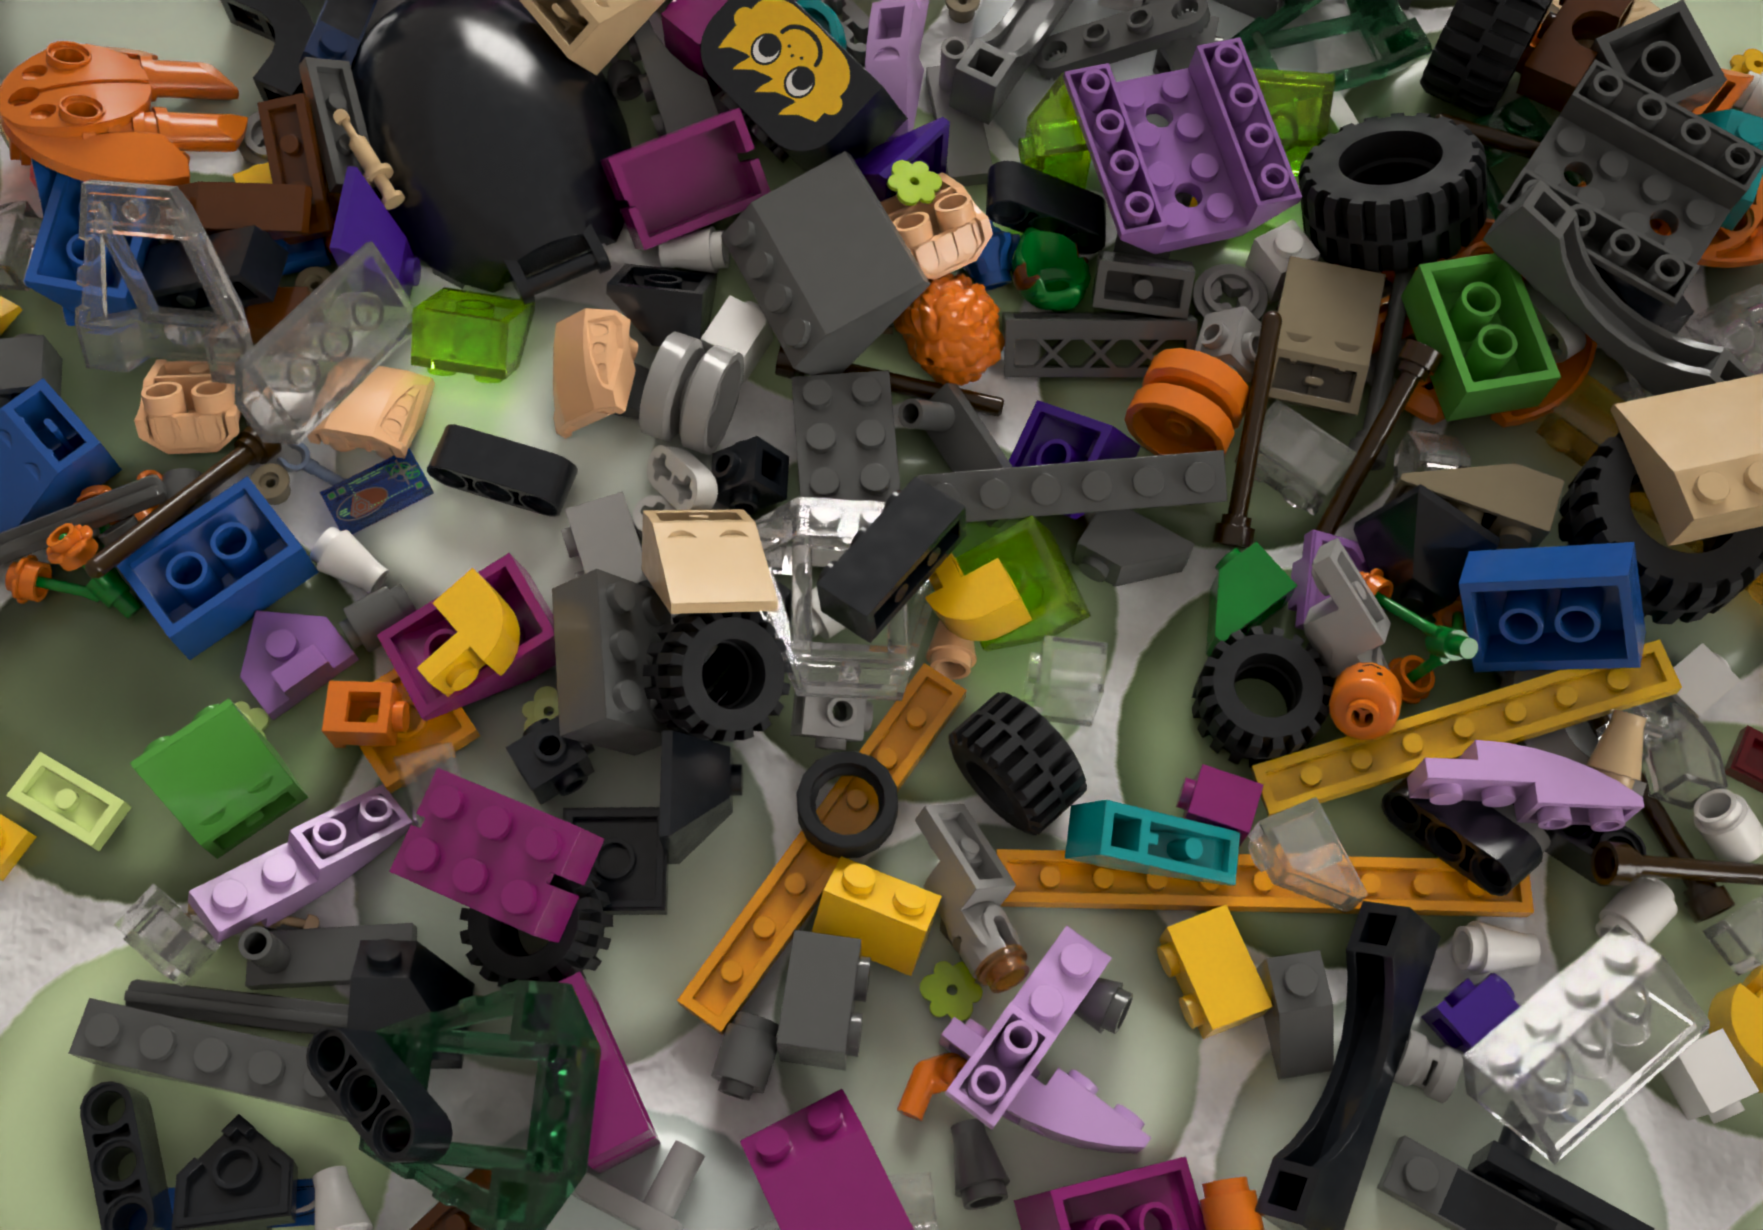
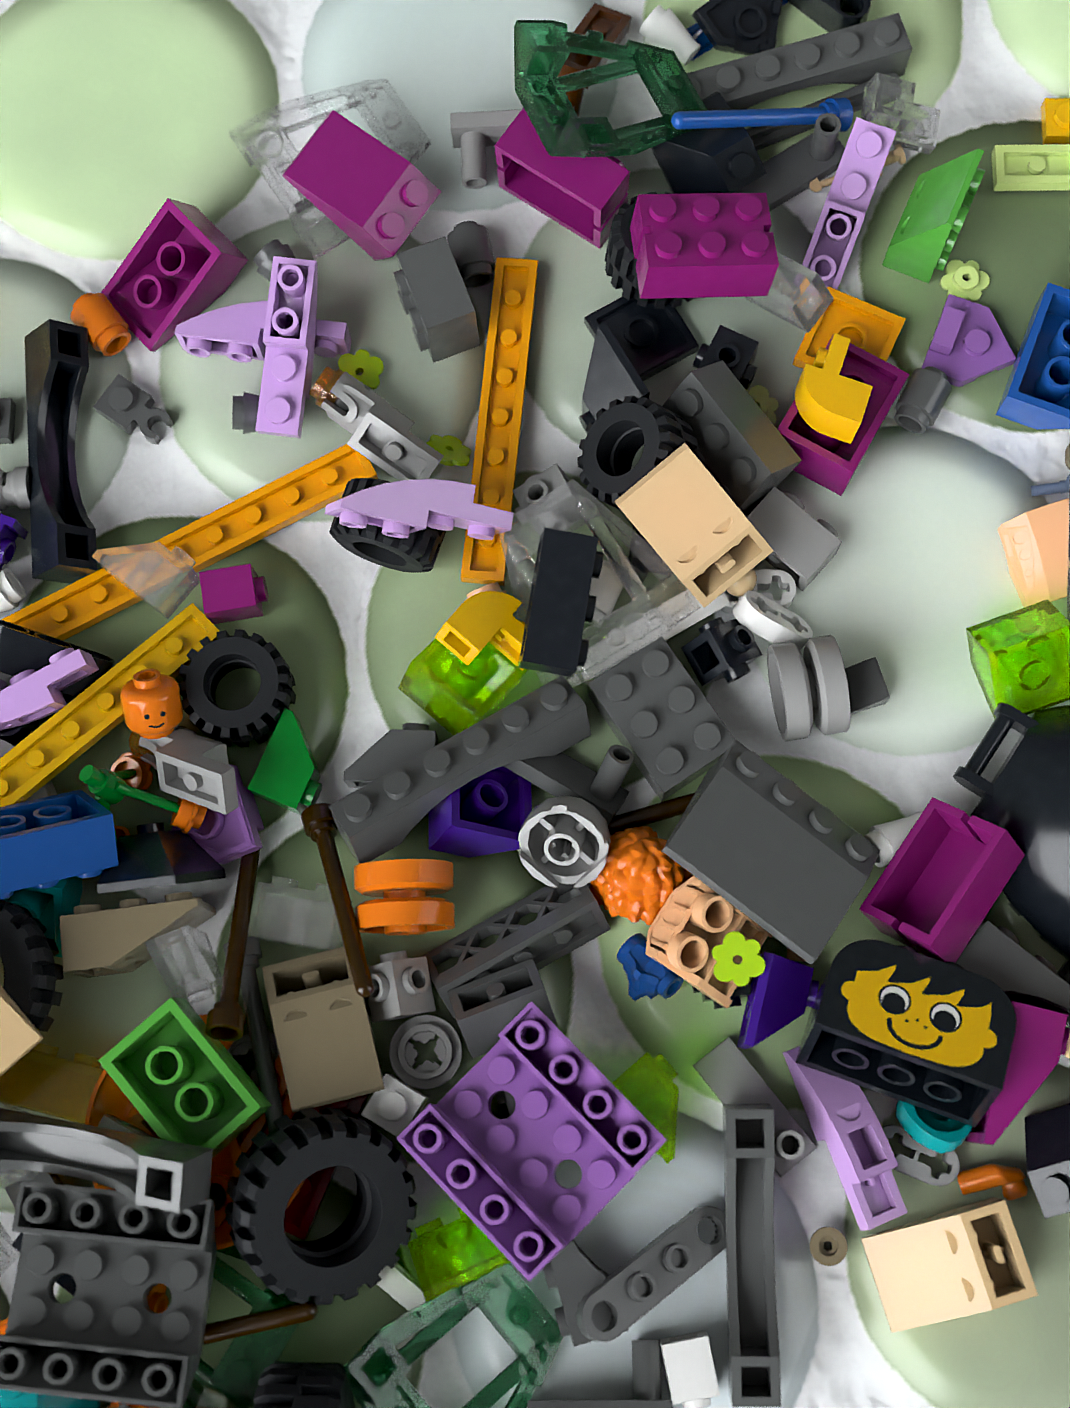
camera: 160 degrees right, 10 degrees up
(236, 977) = (764, 117): none -> blue piece
(346, 559) = (978, 429): white cone -> none
(353, 702) = (879, 300): orange brick -> none
(376, 493) = (999, 495): clear blue tile -> none
(379, 1095) = (673, 63): black beam -> none
(502, 470) = (916, 559): black beam -> none
(591, 368) = (898, 665): light nougat slope -> none
(664, 300) = (890, 770): black slope -> none
(742, 329) = (812, 769): white brick -> none
(847, 764) = (489, 405): black tyre -> none
(879, 910) = (434, 380): yellow brick -> none
(904, 843) = (451, 449): none -> lime plant
(929, 1078) = (346, 307): orange arm -> none
(994, 720) = (418, 503): none -> lavender slope
(1004, 378) = (564, 842): none -> light grey cylinder
(1030, 198) = (630, 1030): black beam -> none
(1049, 270) = (587, 978): green hair -> none
(1066, 679) = (387, 612): clear brick -> none
(1151, 843) = (266, 521): teal slope -> none
(1213, 972) = (183, 472): yellow brick -> none
(1241, 1101) = (131, 406): none -> dark grey plate
(1301, 1015) = (116, 480): dark grey slope -> none

